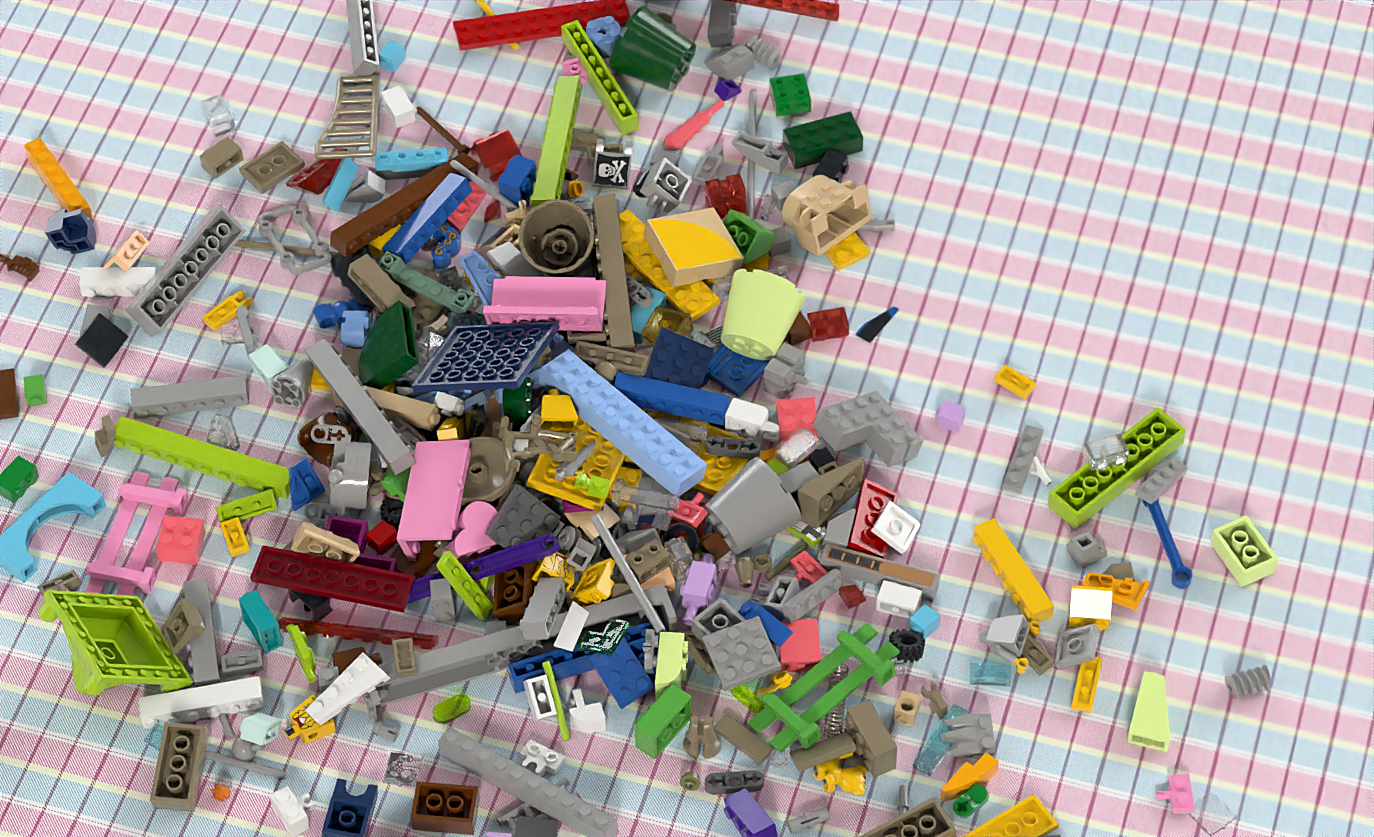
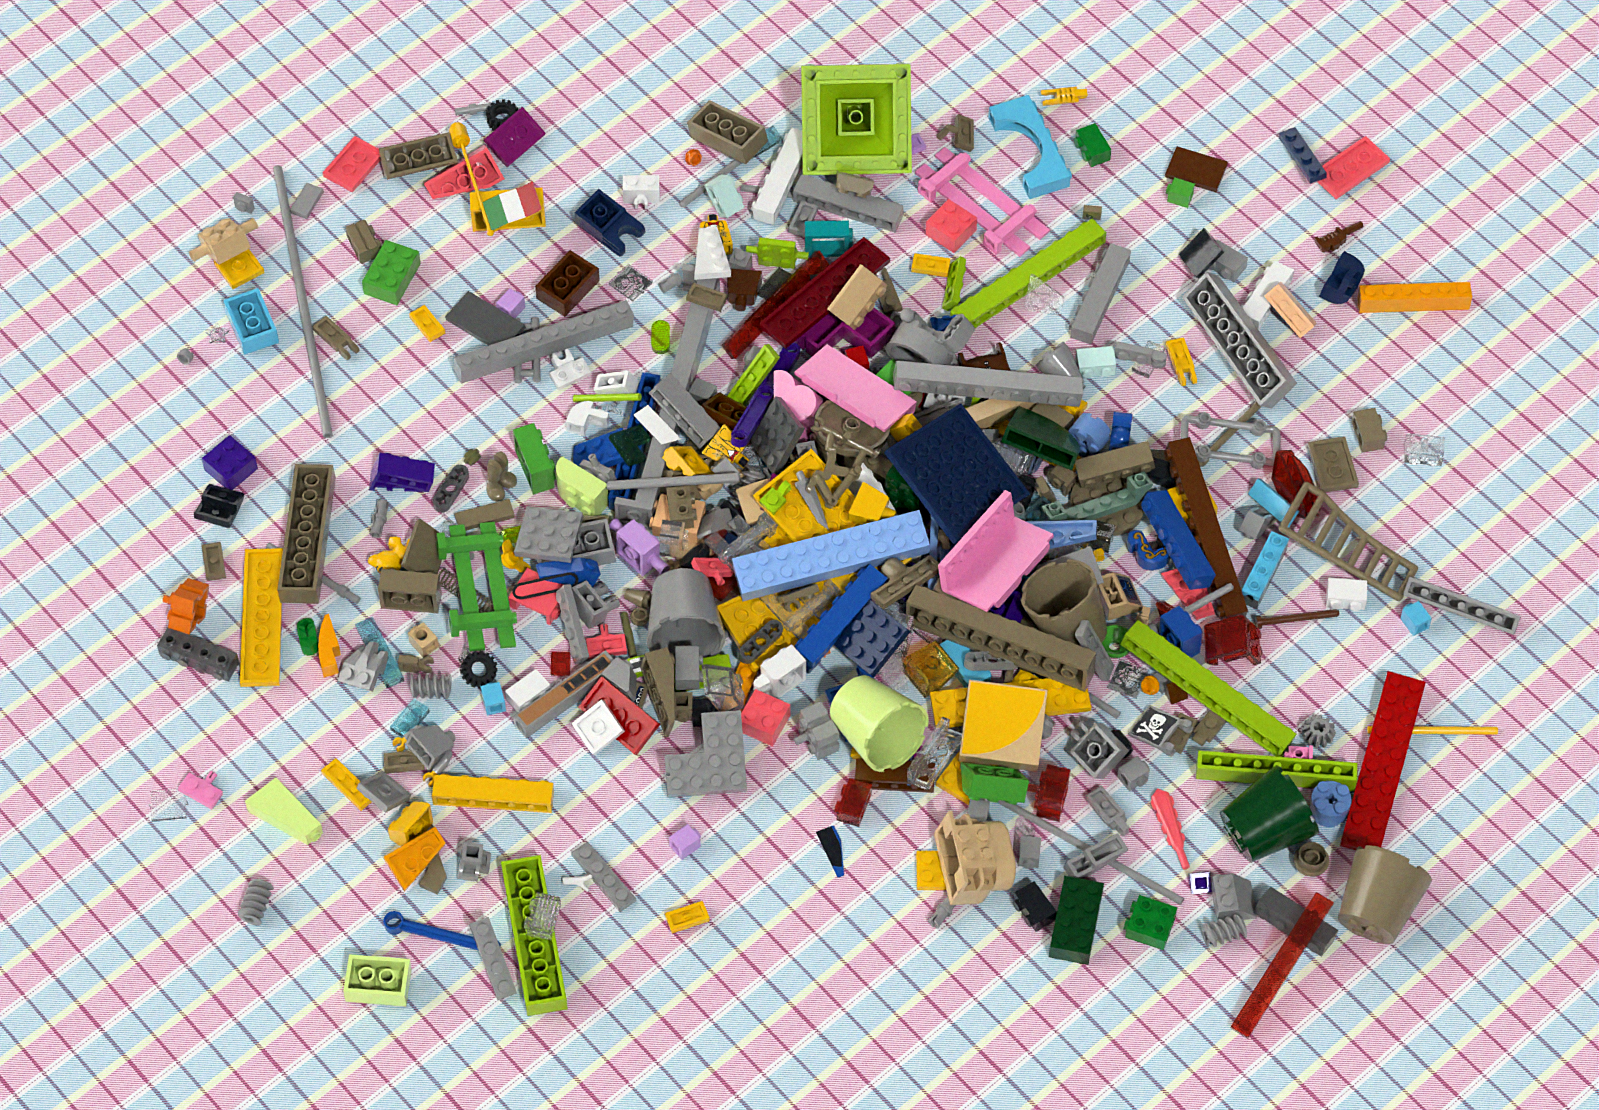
camera: 120 degrees right, 5 degrees up
(326, 646) = (773, 283): none -> clear smoke tile
(541, 71) = (1318, 731): none -> light grey gear
(794, 630) = (542, 579): none -> black piece
(948, 673) = (428, 686): none -> light grey piece

